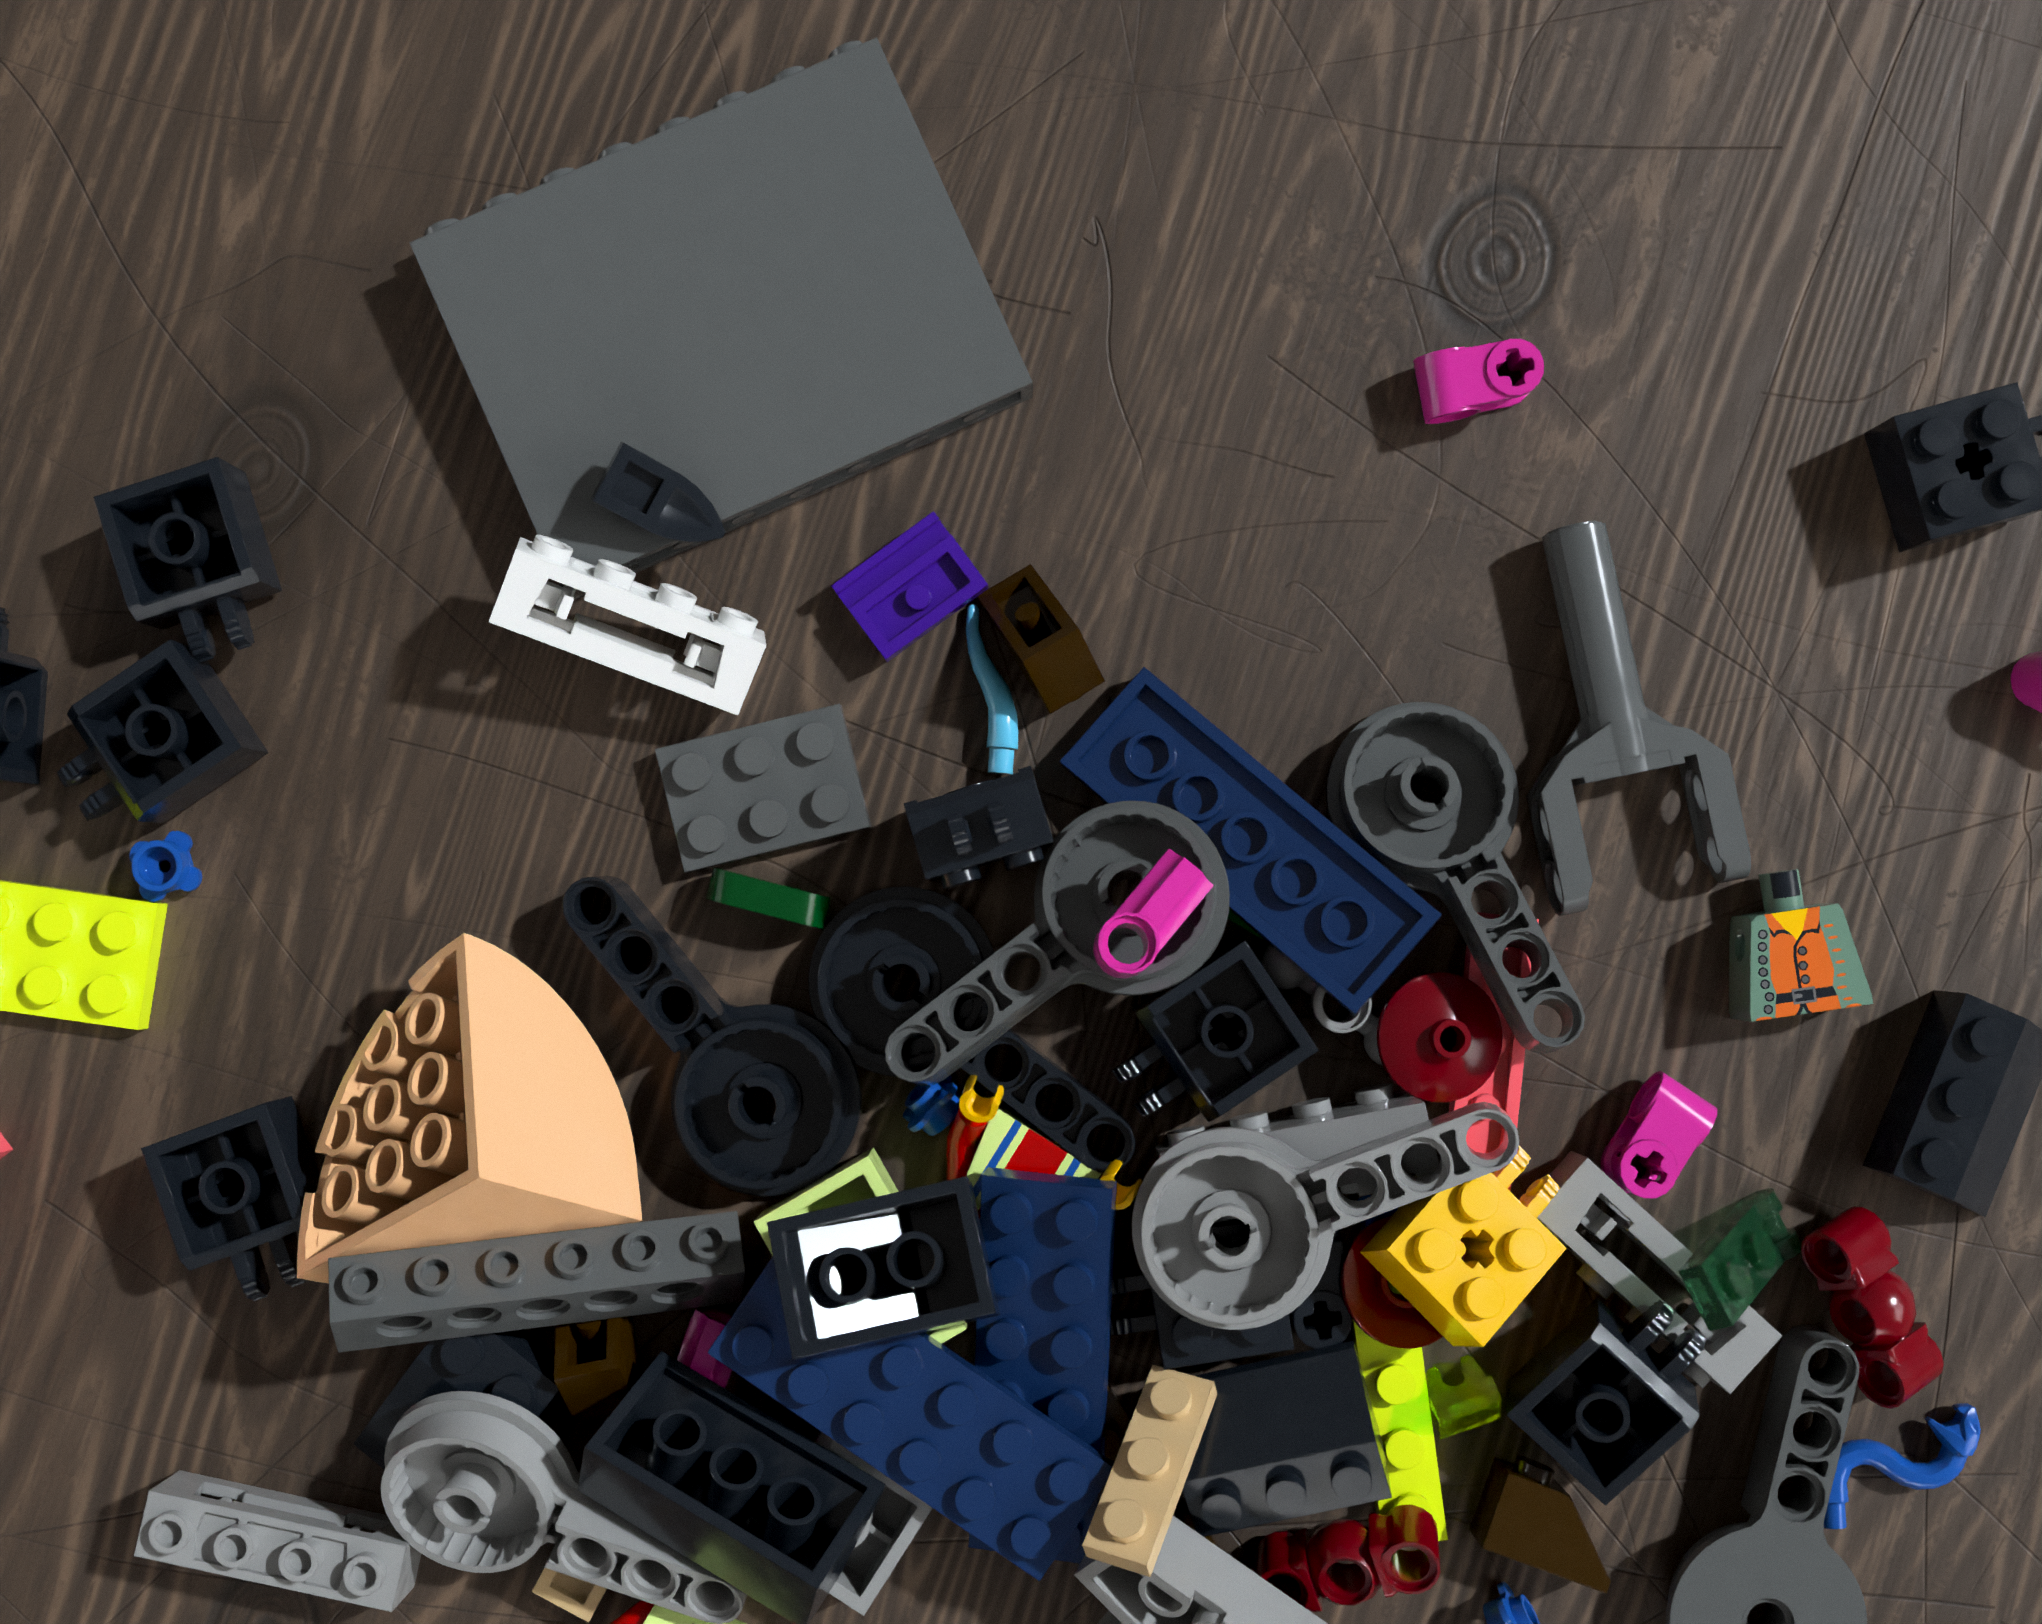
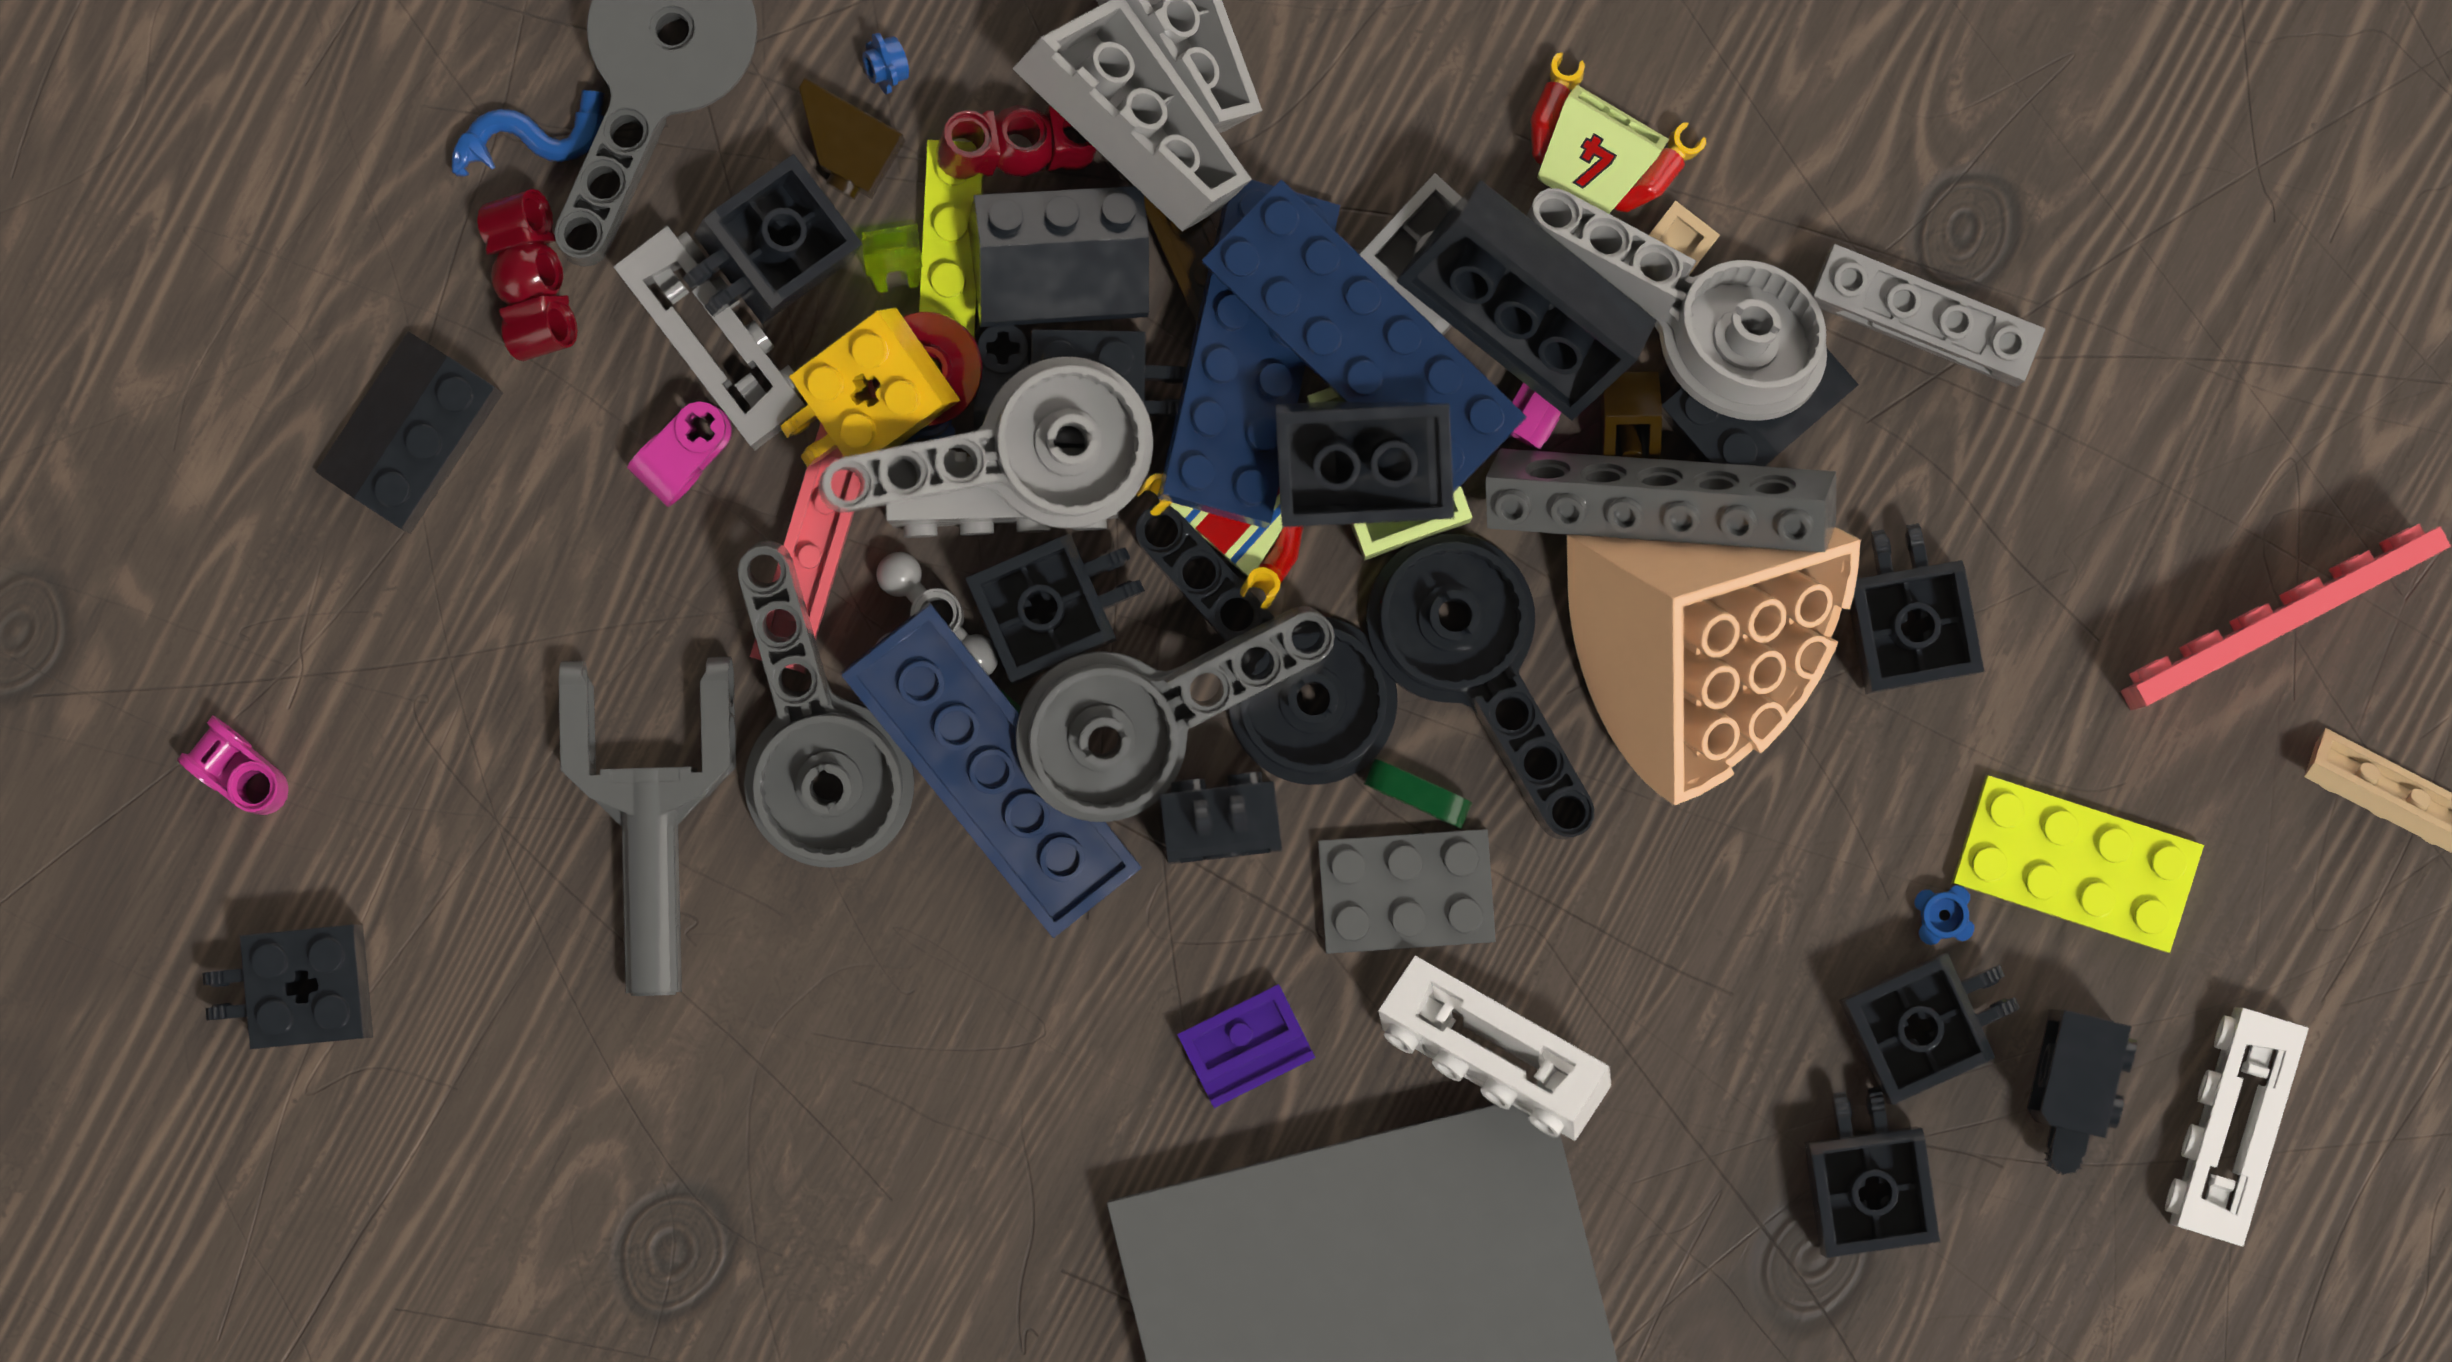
camera: 165 degrees left, 0 degrees up
(656, 498) = (1451, 1154): black plate -> none
(932, 1107) = (1305, 587): blue plate -> none
(1002, 715) = (1185, 918): medium azure animal -> none
(1041, 638) = (1139, 979): dark brown slope -> none
(1150, 1470) = (1171, 256): tan plate -> none
(1153, 912) = (1086, 719): dark pink piece -> none
(1412, 1030) = (883, 574): dark red dish -> none
(1466, 380) = (725, 1141): dark pink piece -> none
(1739, 1259) = (637, 338): clear green plate -> none
(1792, 956) = (535, 586): torso -> none

